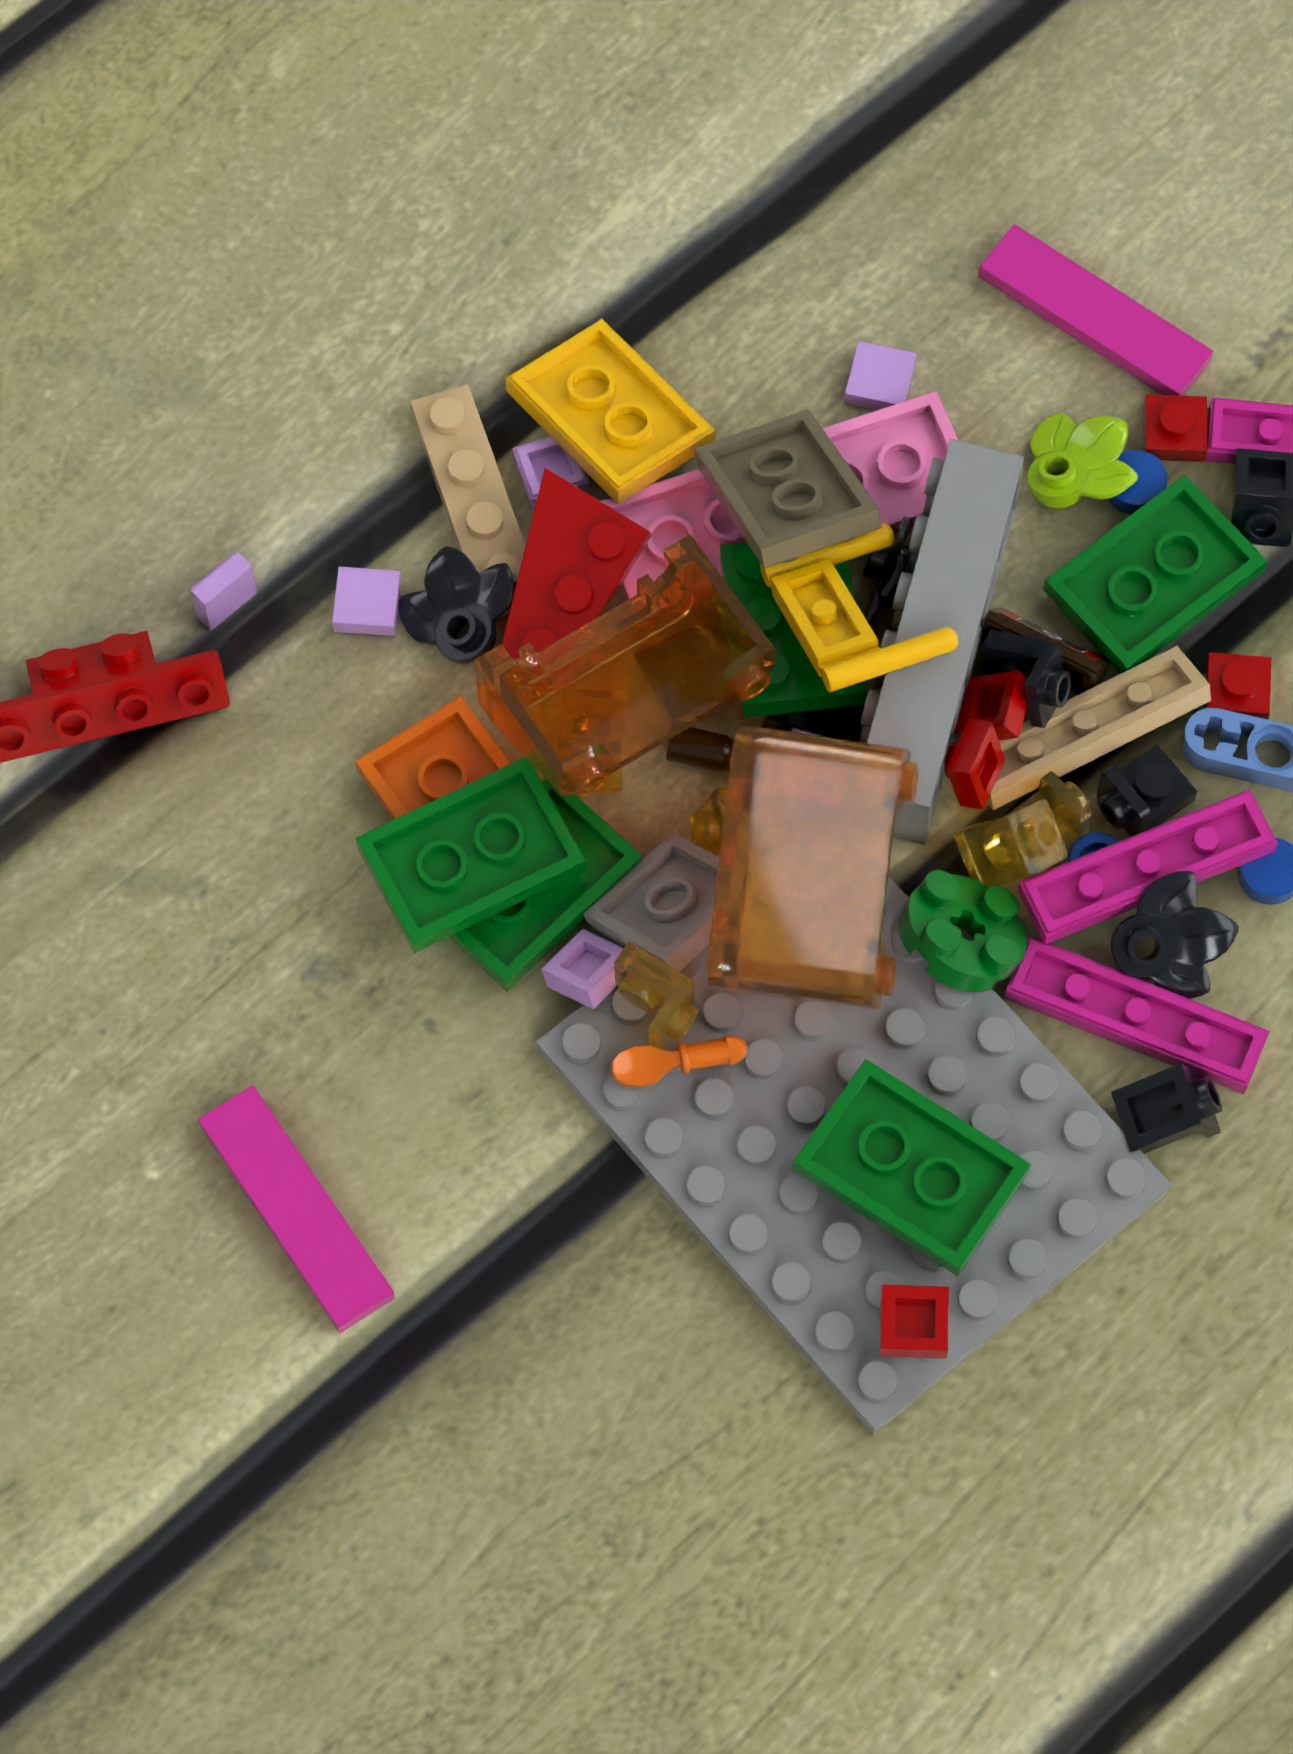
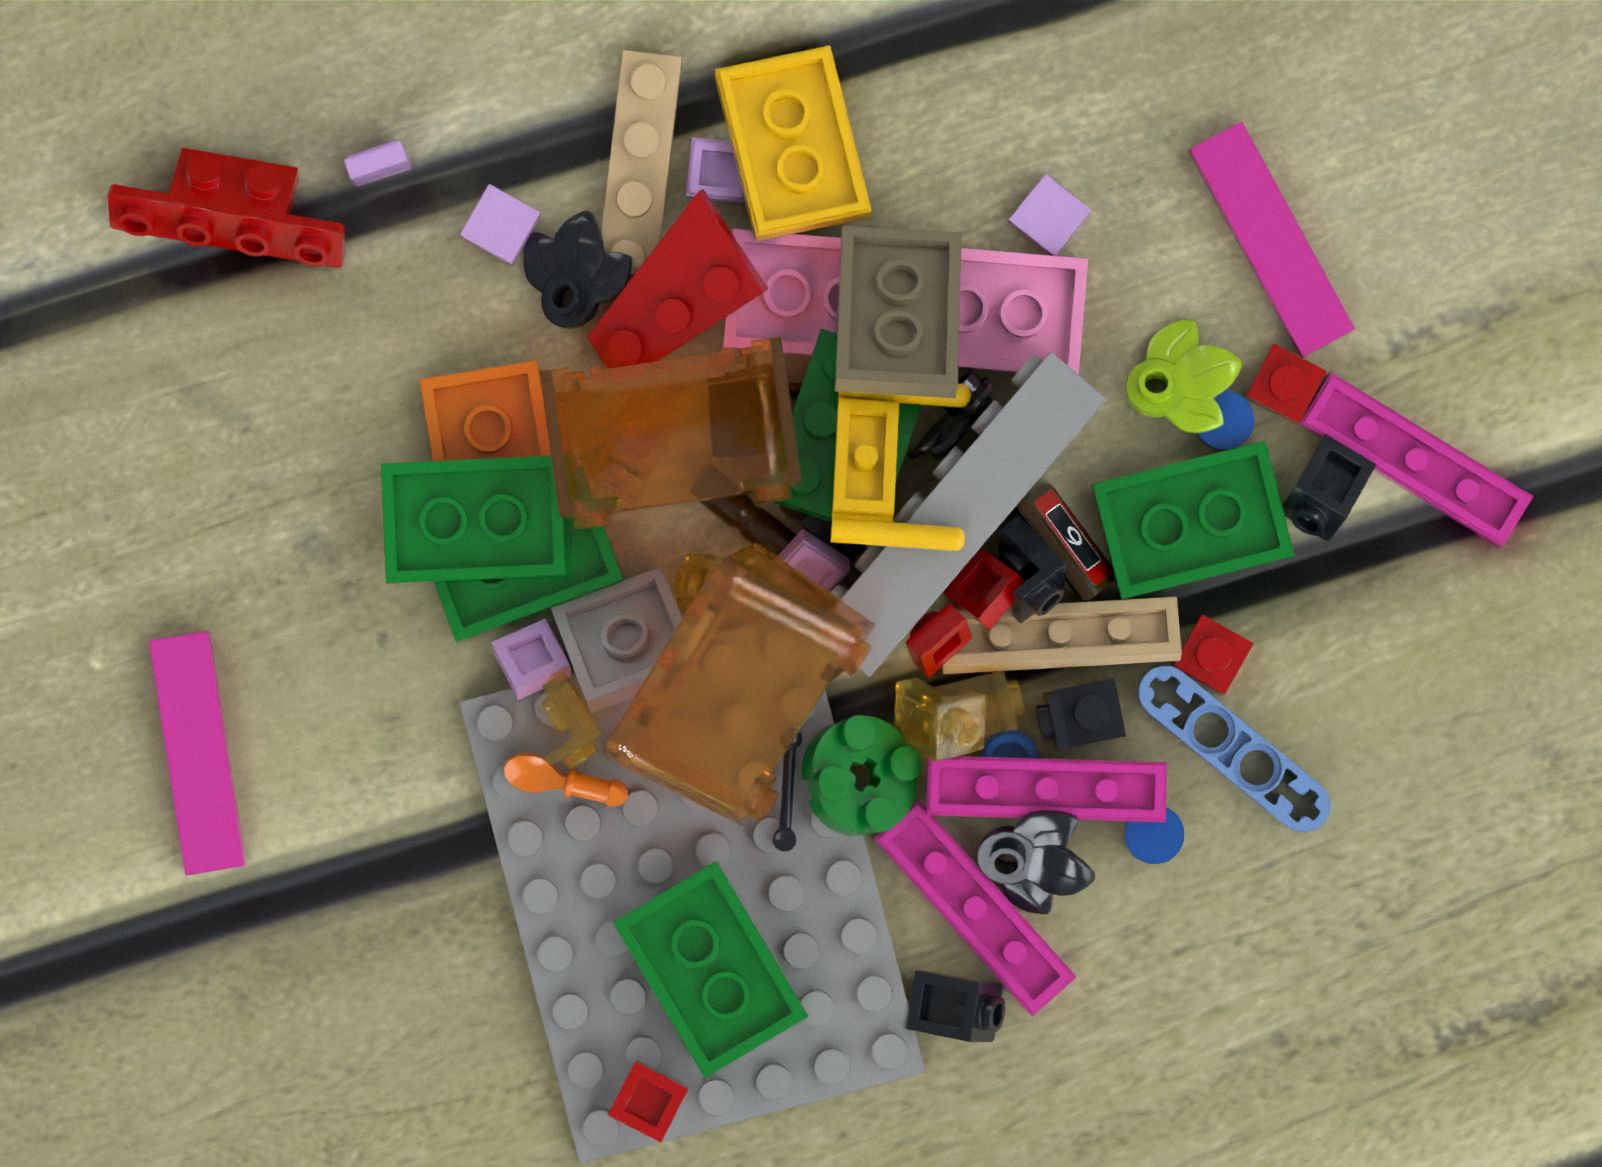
camera: 25 degrees right, 20 degrees up
(920, 1018) = (785, 838): none -> black hinge

